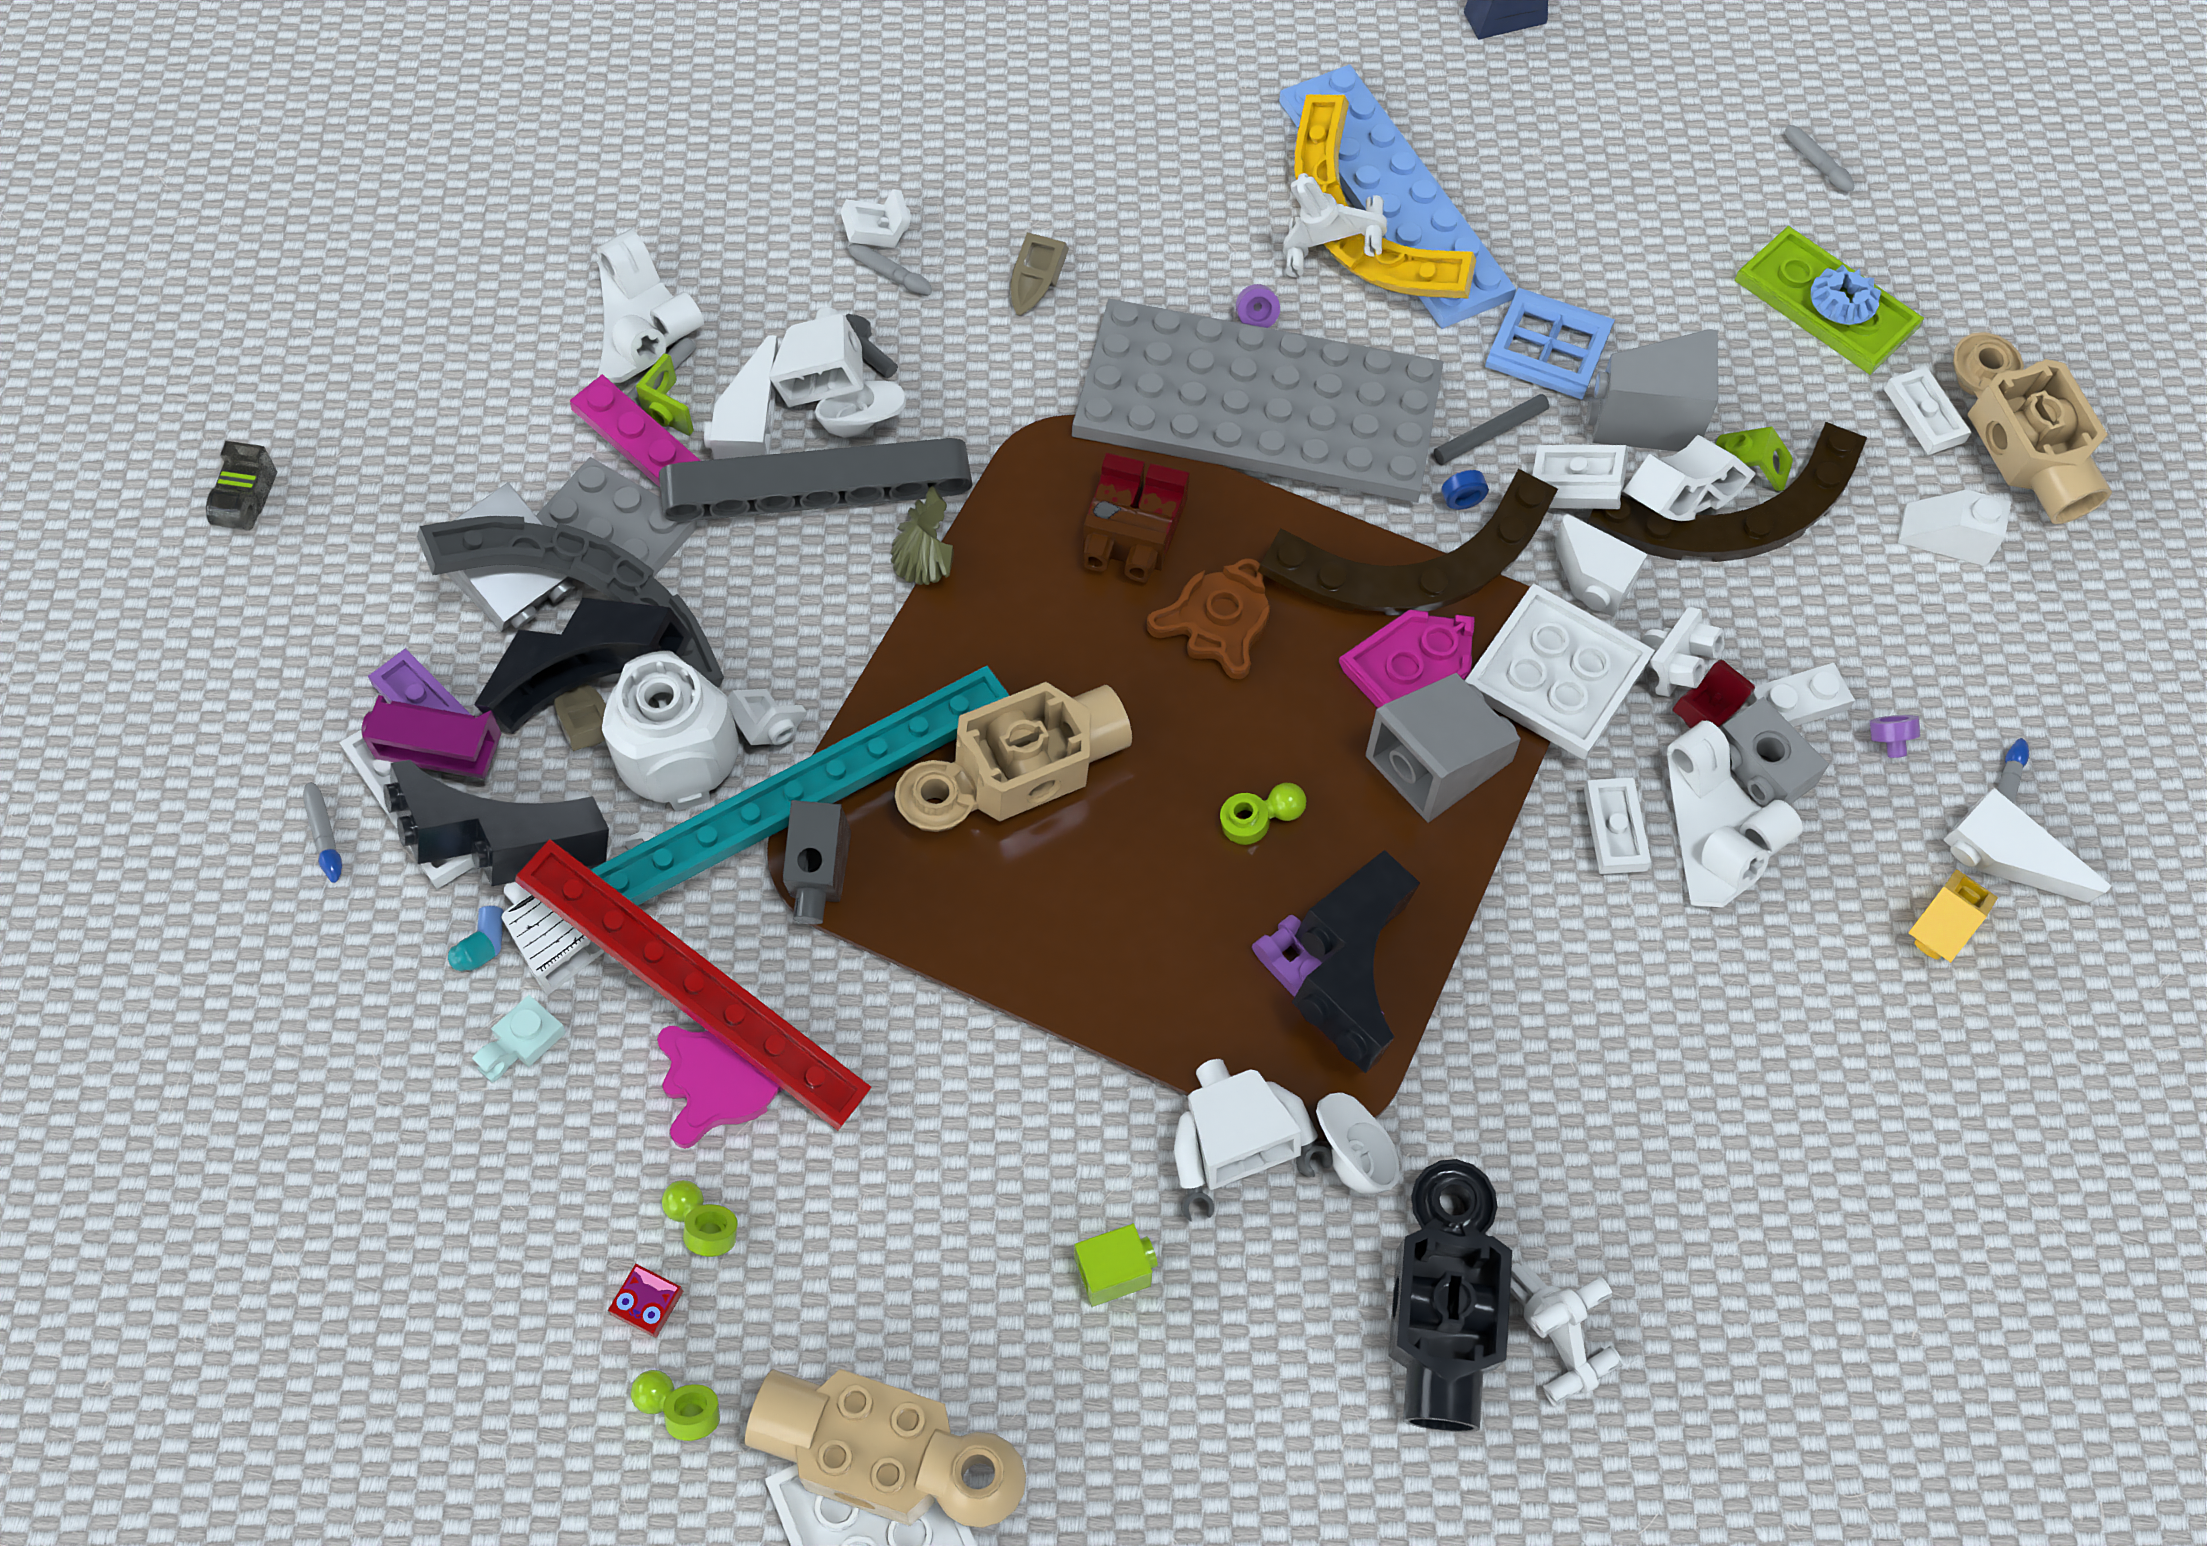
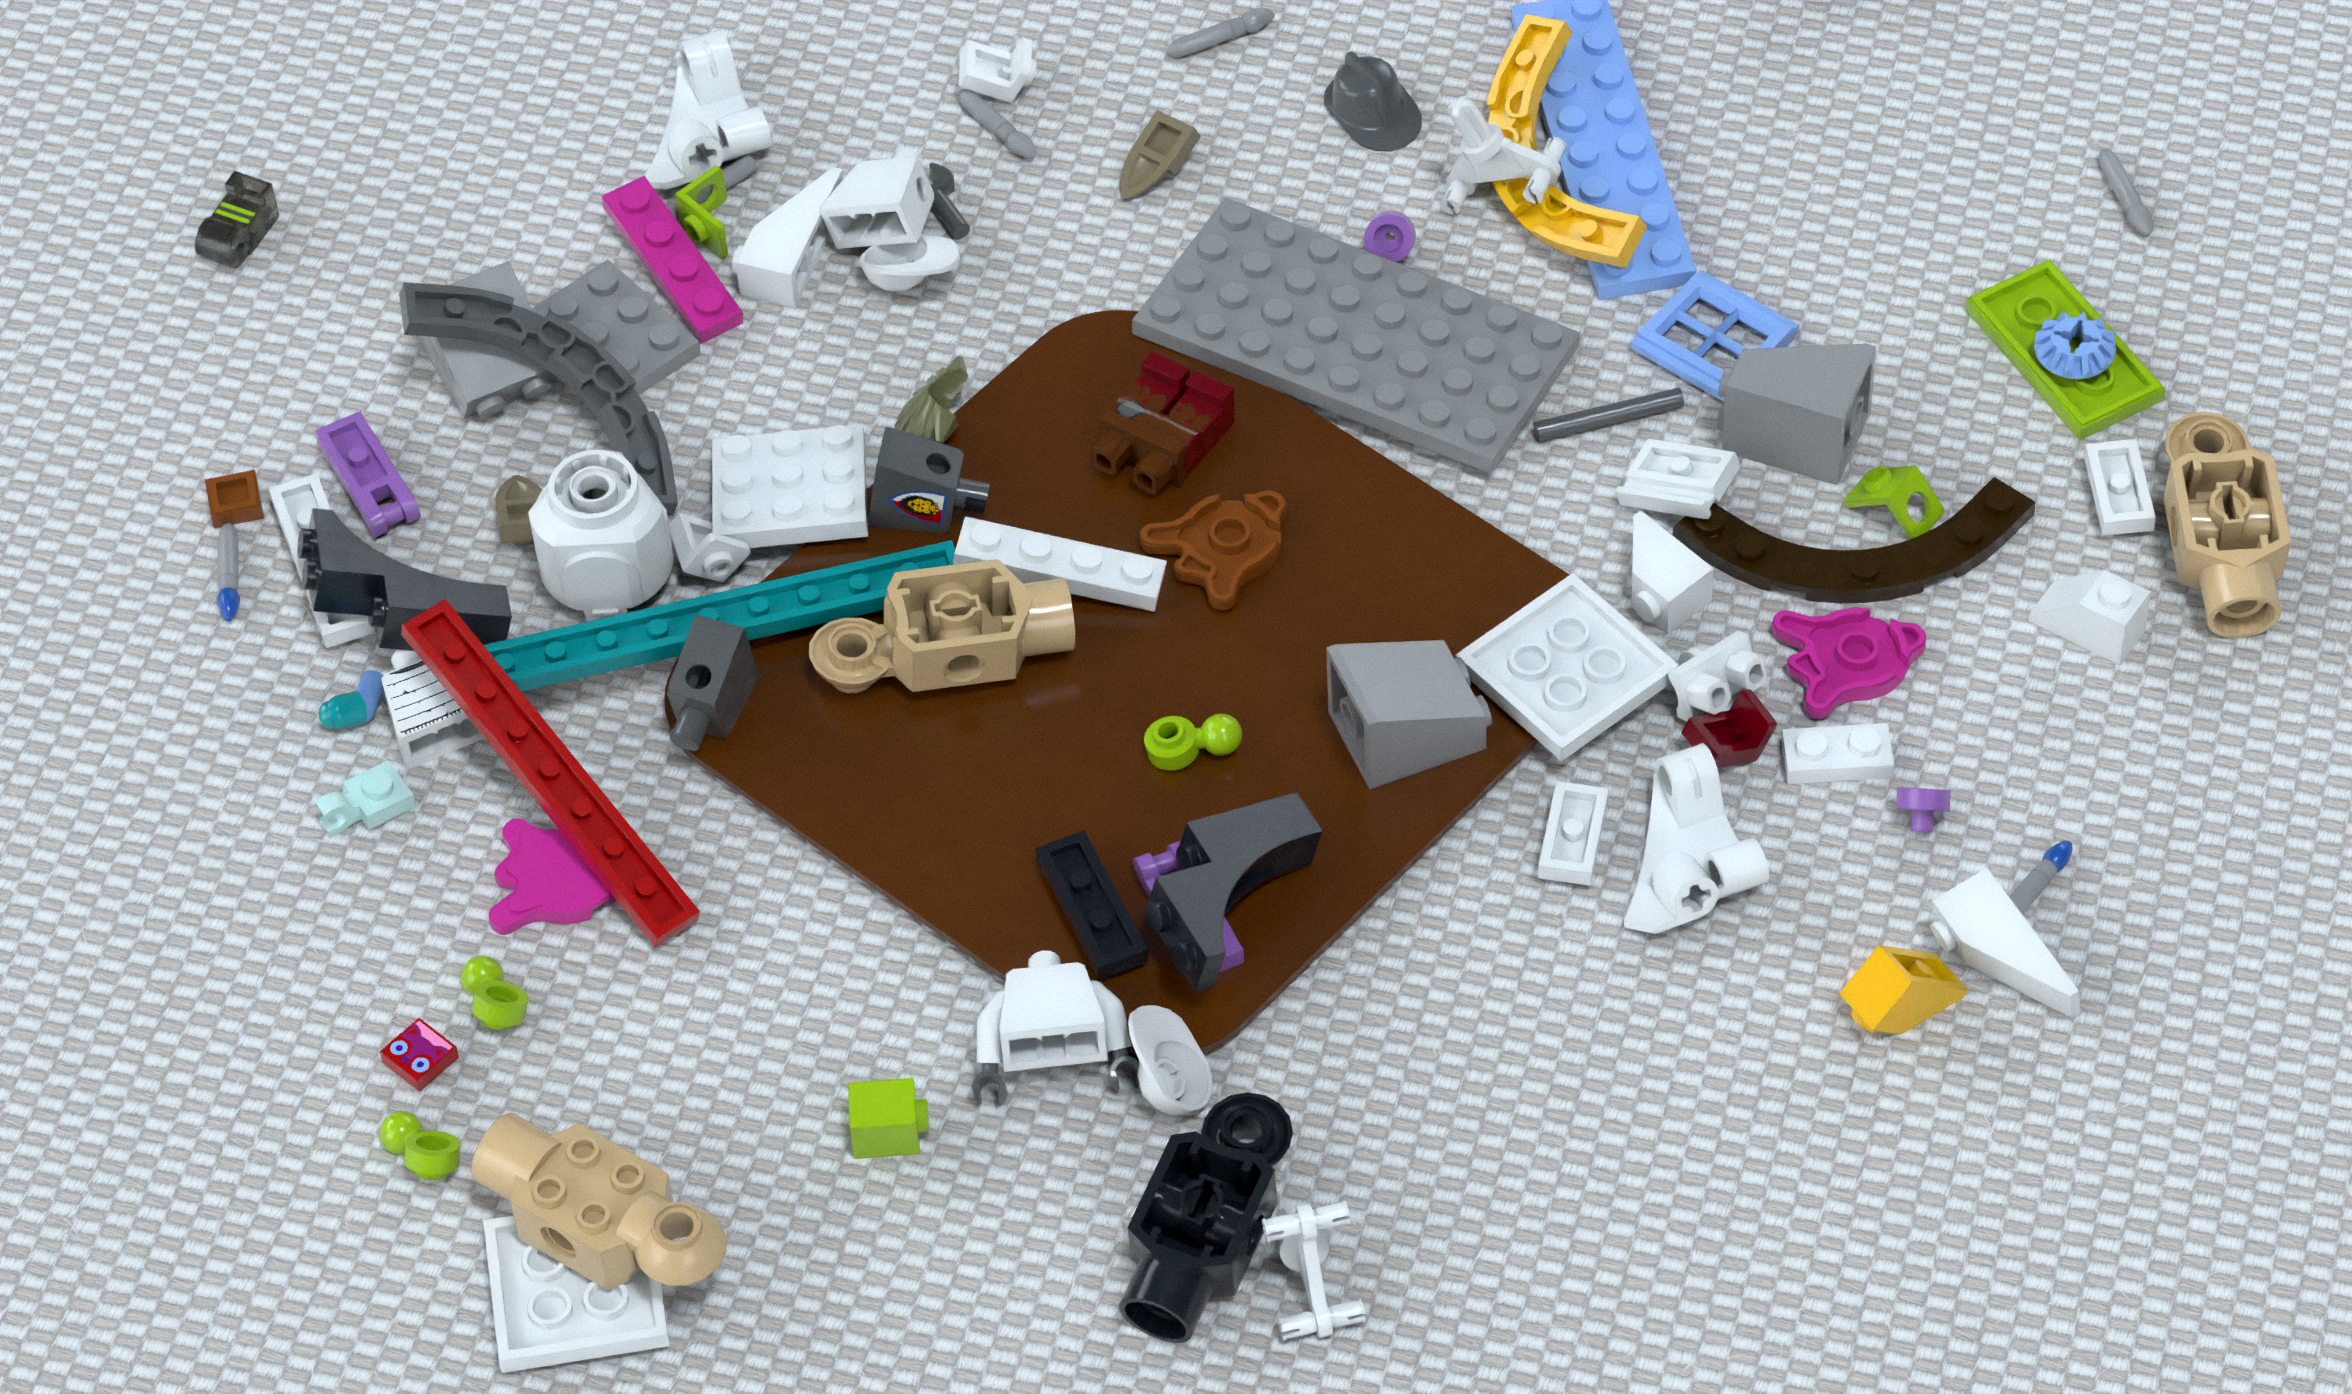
camera: 20 degrees right, 10 degrees down
(308, 756) = (234, 498): none -> dark orange tile
(431, 737) = (362, 497): magenta window -> none
(592, 646) = (503, 452): black arch -> none
(813, 479) = (836, 324): dark grey beam -> none
(821, 641) = (790, 486): none -> white plate
(944, 619) = (921, 485): none -> dark grey torso
(1050, 155) = (1197, 41): none -> light grey piece
(1089, 666) = (1087, 568): none -> white plate
(1197, 194) = (1373, 104): none -> dark grey piece
(1232, 999) = (1091, 905): none -> black plate
(1410, 655) = (1417, 612): dark pink tile -> none
(1422, 584) = (1460, 554): dark brown plate -> none
(1465, 489) = (1546, 469): blue tile -> none
(1689, 480) = (1798, 505): white brick -> none
(1765, 732) = (1769, 797): light grey brick -> none
(1770, 606) = (1847, 655): none -> dark pink tile

